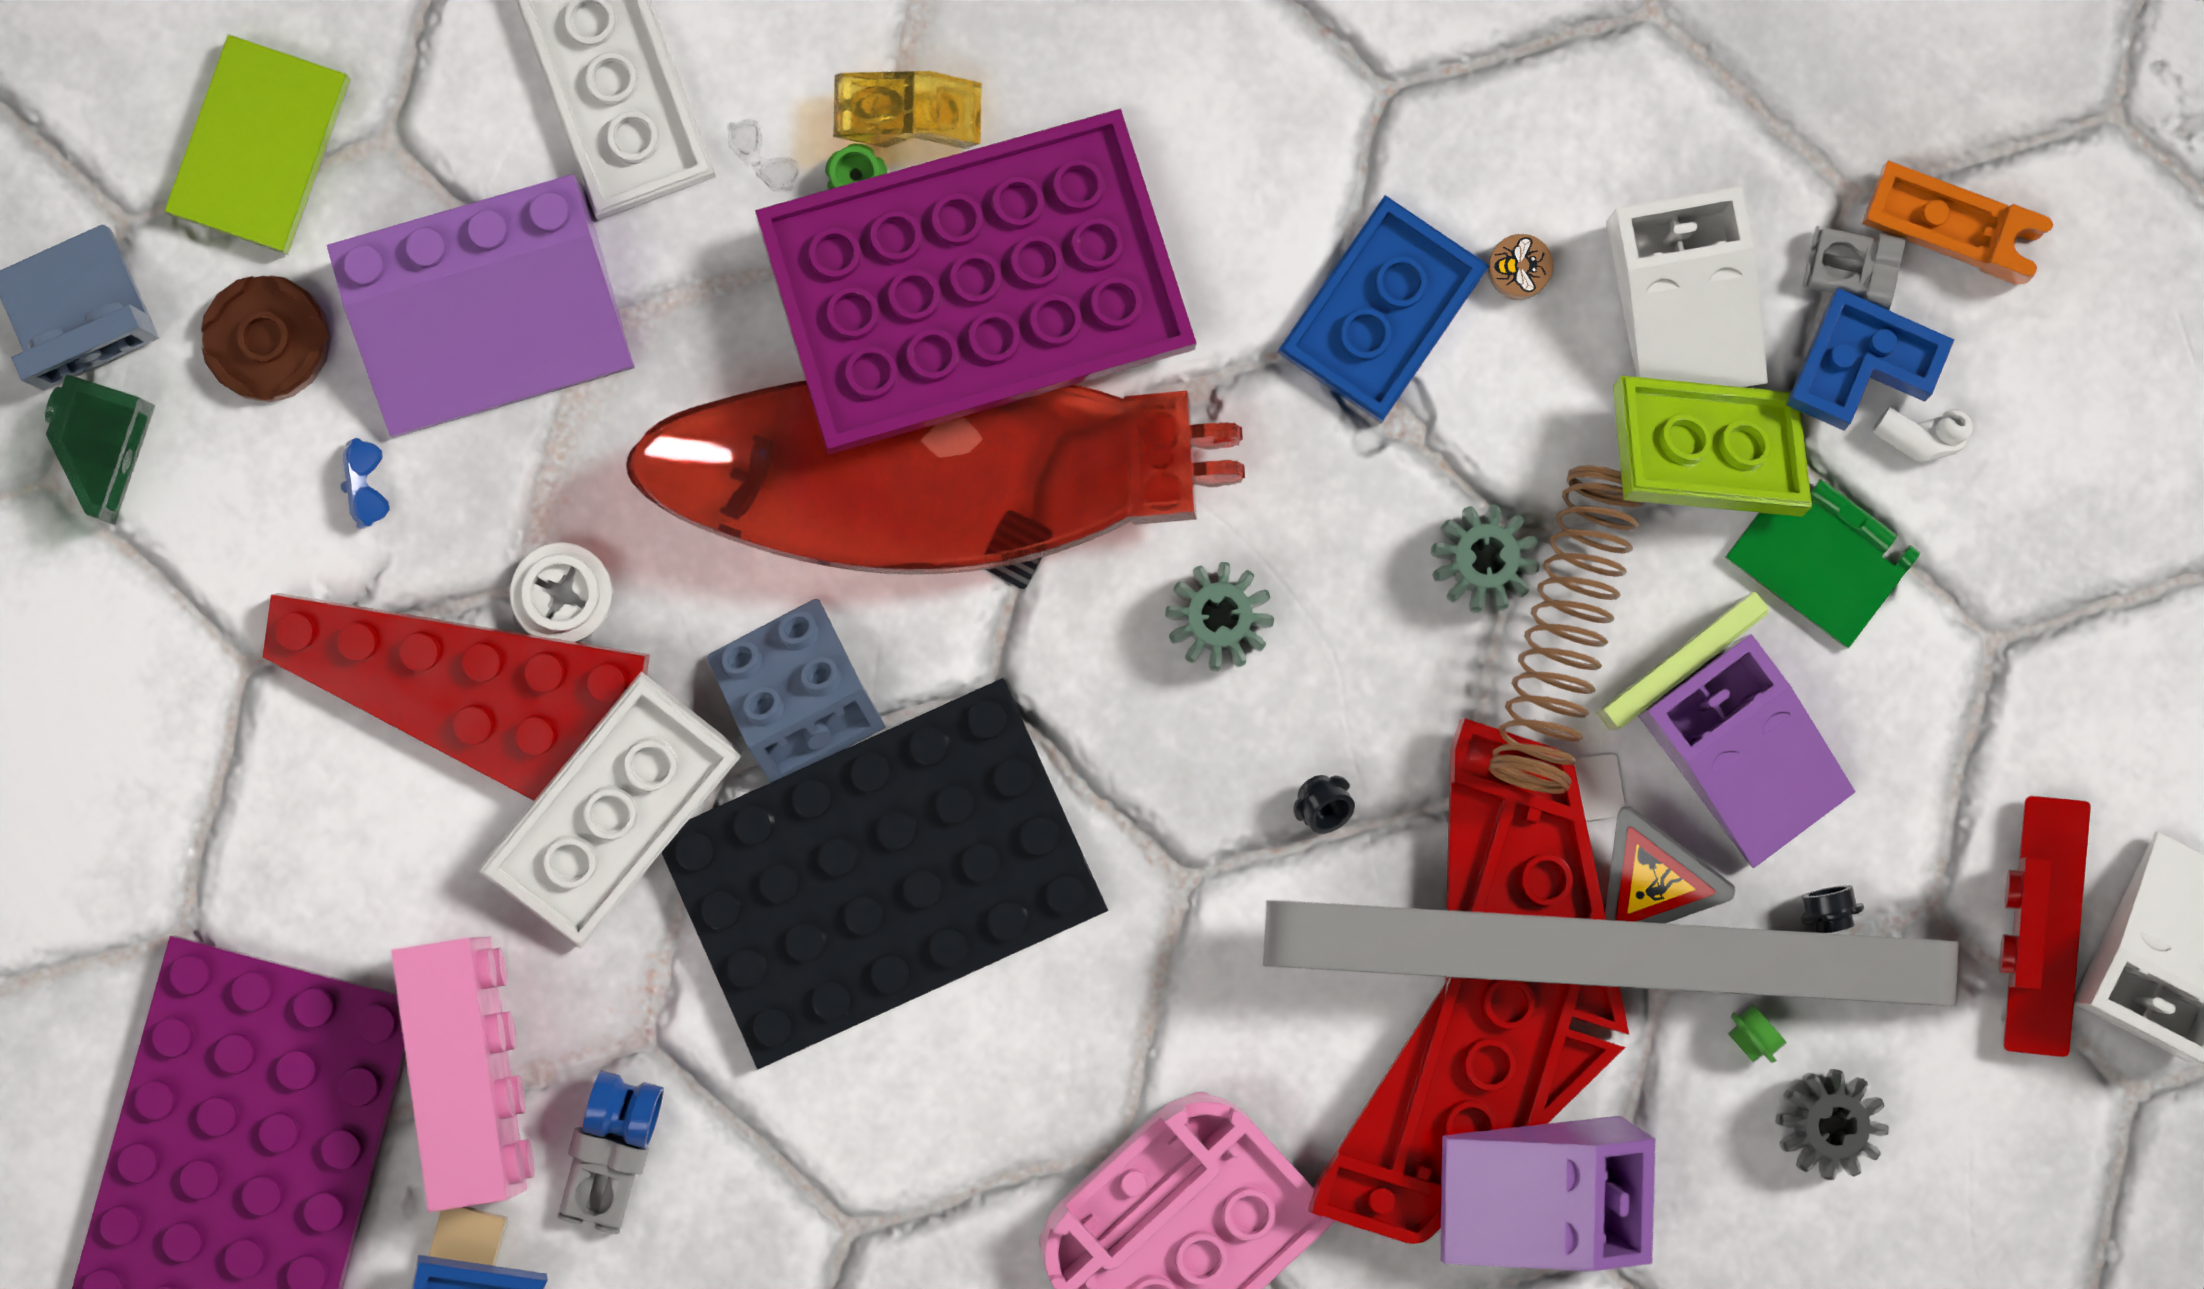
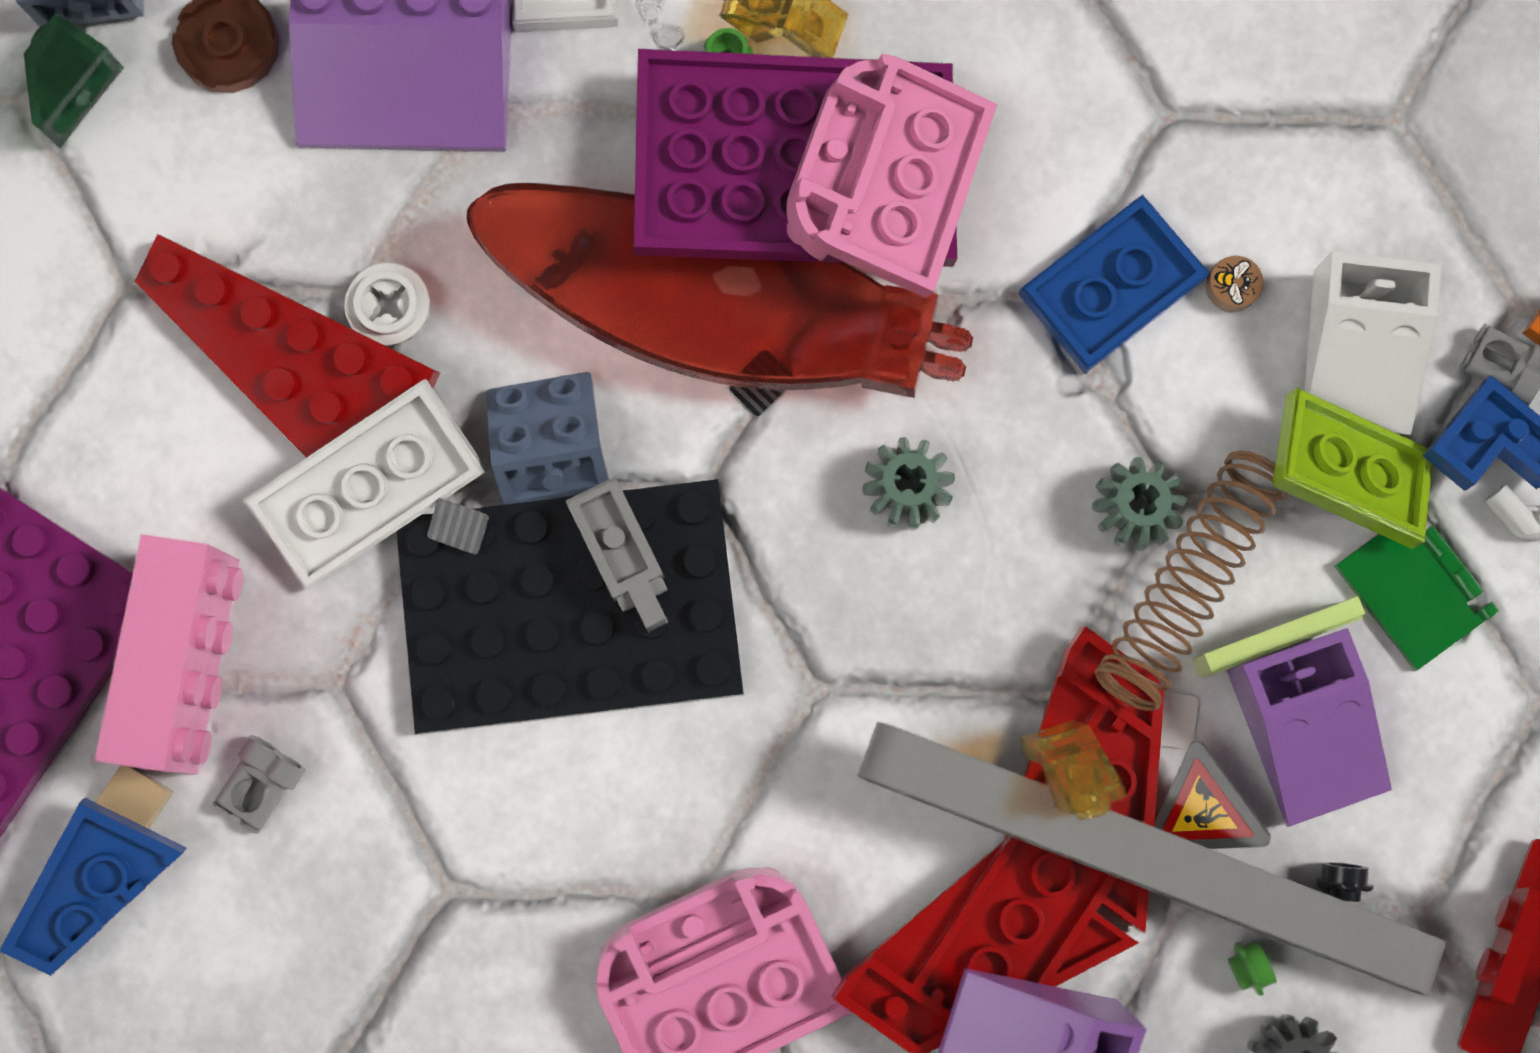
camera: 15 degrees right, 5 degrees down
(365, 503) = (258, 188): blue piece -> none
(609, 1104) = (294, 731): blue wheel -> none
(730, 824) = (457, 526): none -> sticker
(922, 796) = (620, 550): none -> light grey hinge
(1088, 270) = (888, 171): none -> bright pink plate
(1324, 803) = (947, 661): black plate -> none
(1495, 884) = (1075, 769): none -> clear yellow slope

